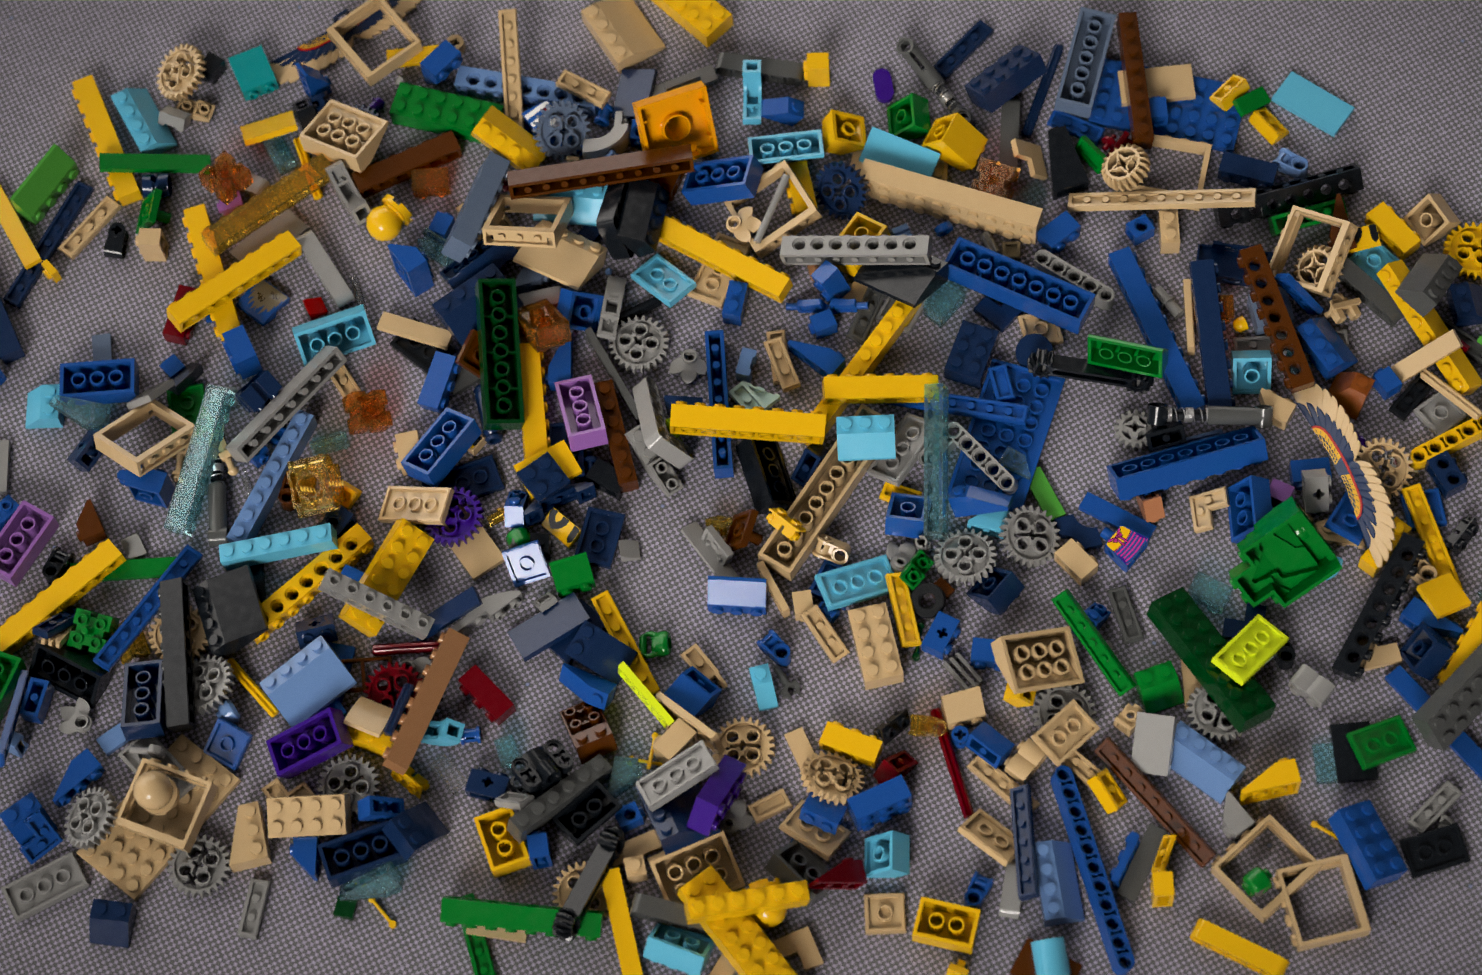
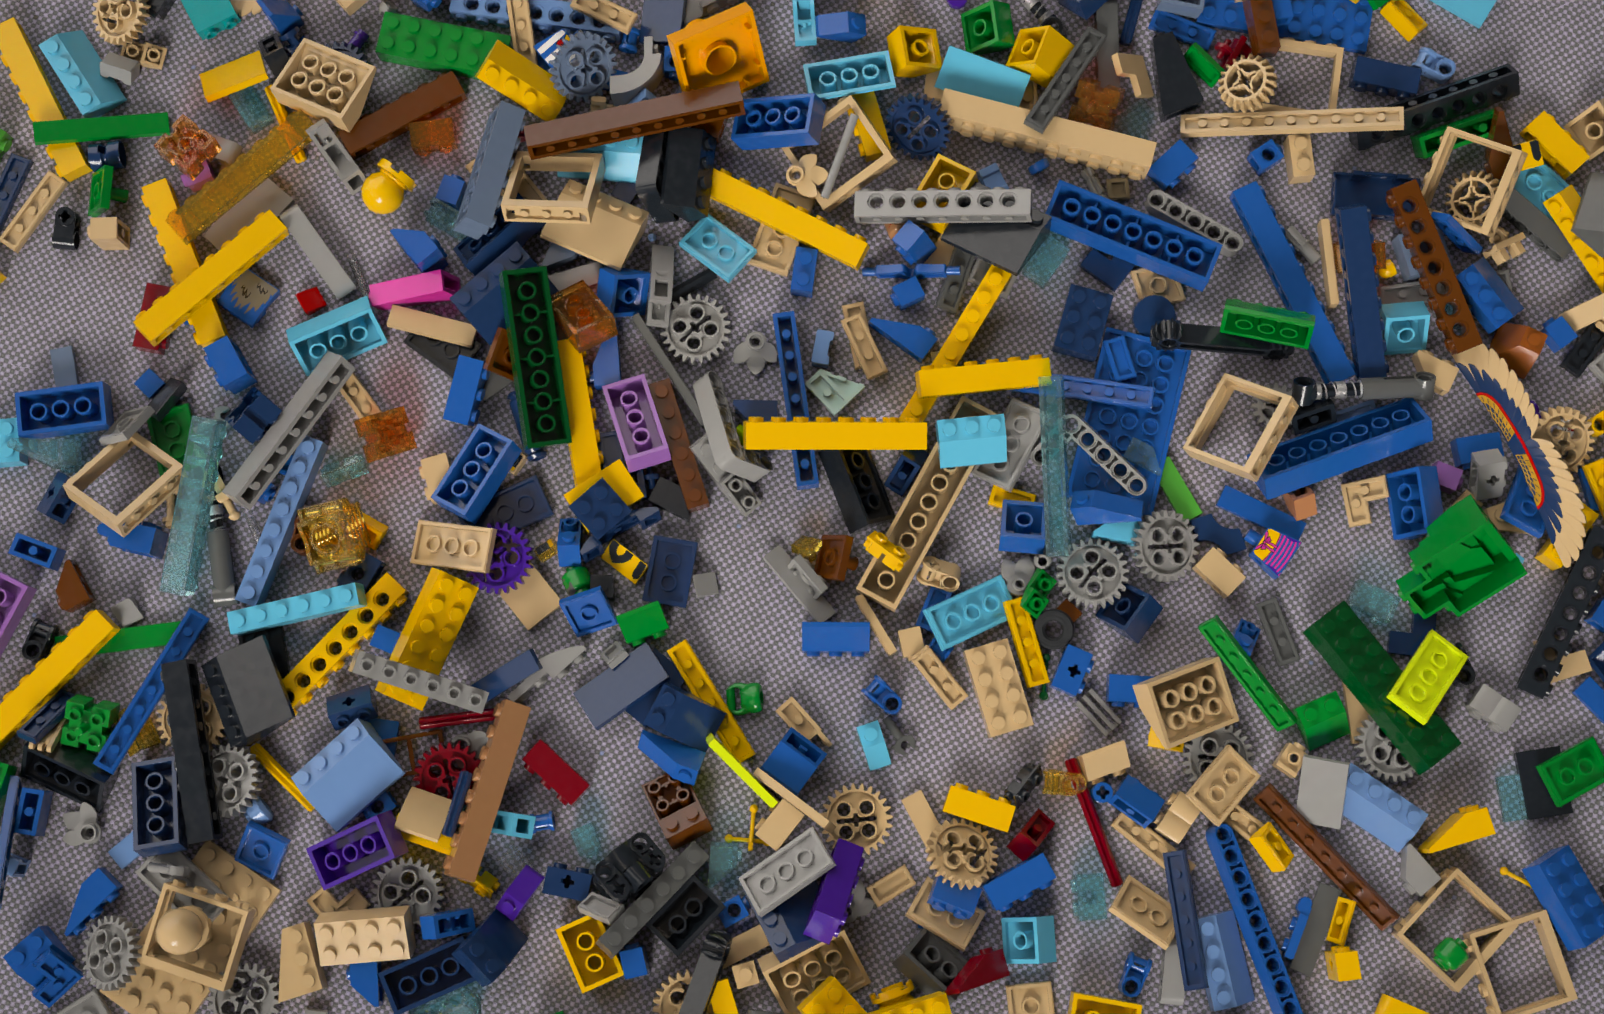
camera: 10 degrees left, 15 degrees up
(64, 492) = (37, 552): none -> blue brick
(403, 301) = (414, 290): none -> dark pink slope
(445, 789) = (520, 892): none -> dark purple slope
(942, 811) = (1097, 905): none -> clear light blue brick
(968, 157) = (1065, 80): none -> dark grey tile
(1118, 453) = (1269, 439): none -> tan window

